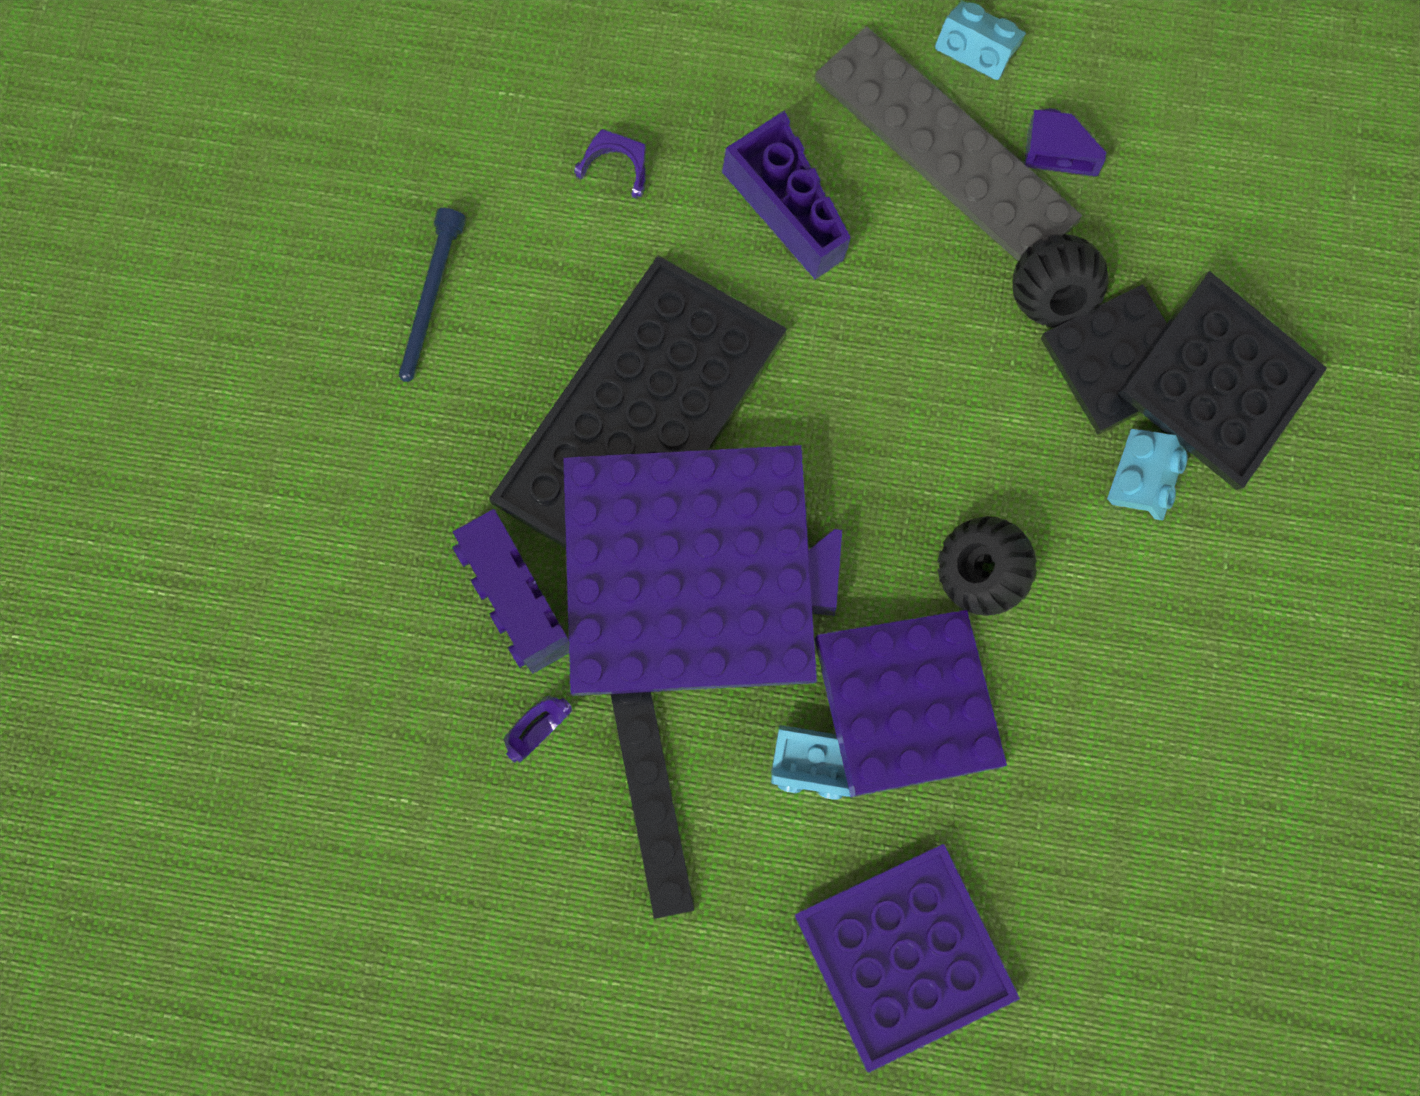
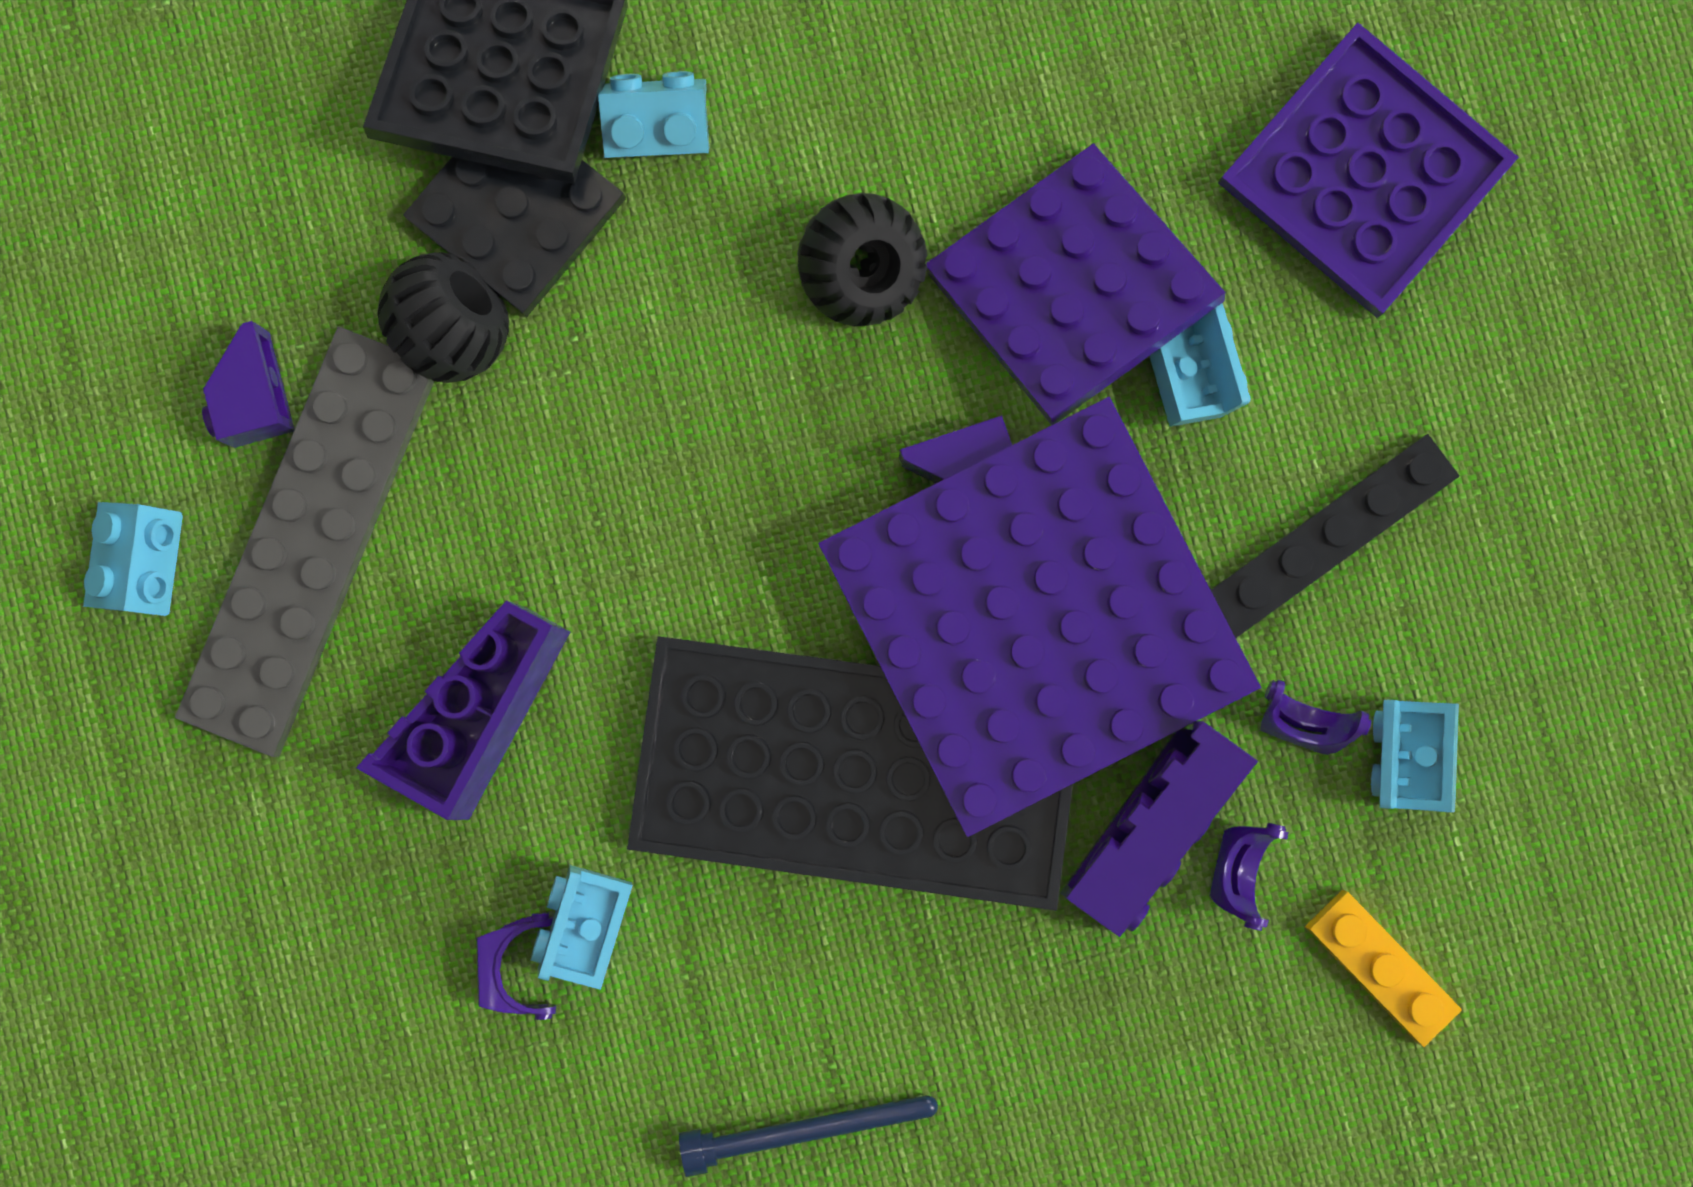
camera: 115 degrees left, 10 degrees up
(346, 707) = (1383, 968): none -> yellow plate
(434, 627) = (1249, 846): none -> dark purple helmet
(475, 791) = (1416, 755): none -> medium azure bracket
(621, 209) = (583, 927): none -> medium azure bracket

